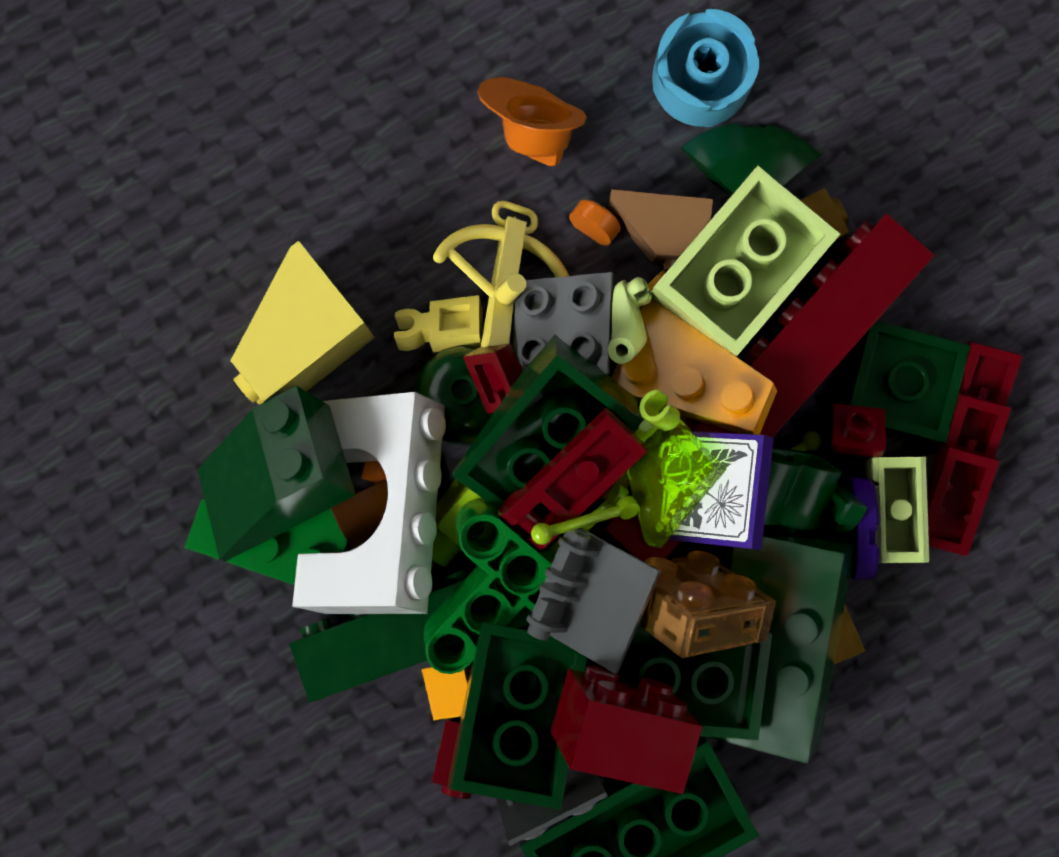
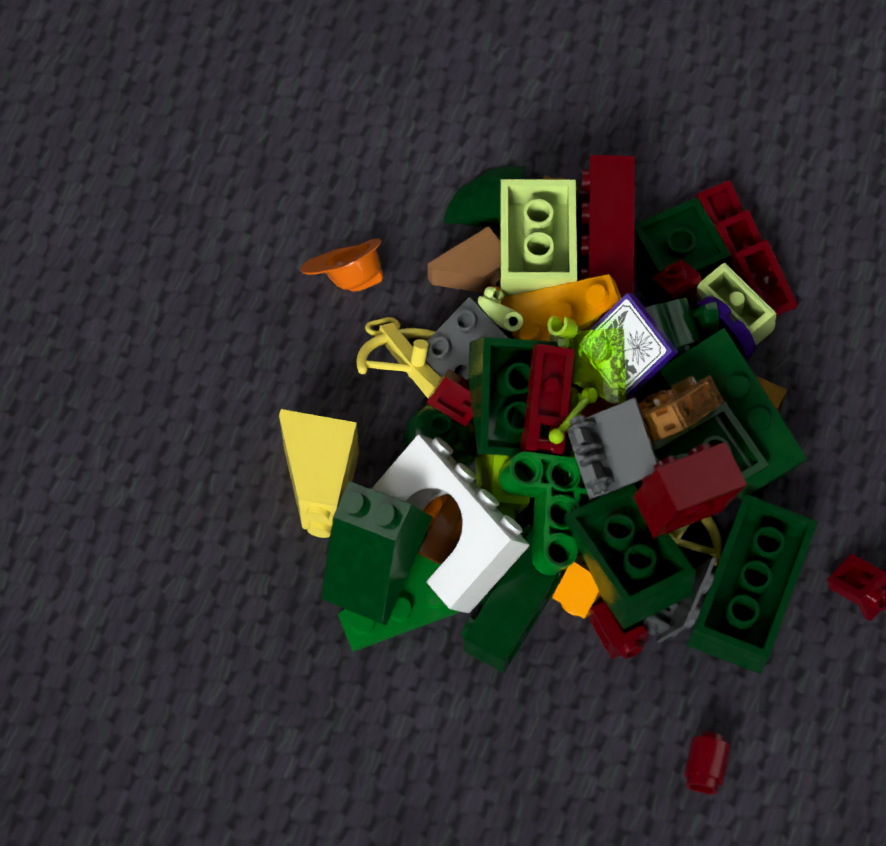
camera: 40 degrees left, 20 degrees down
(444, 326) = (393, 410): light yellow plate -> none
(595, 221) = (431, 292): orange tile -> none
(699, 40) = (421, 166): medium azure brick -> none

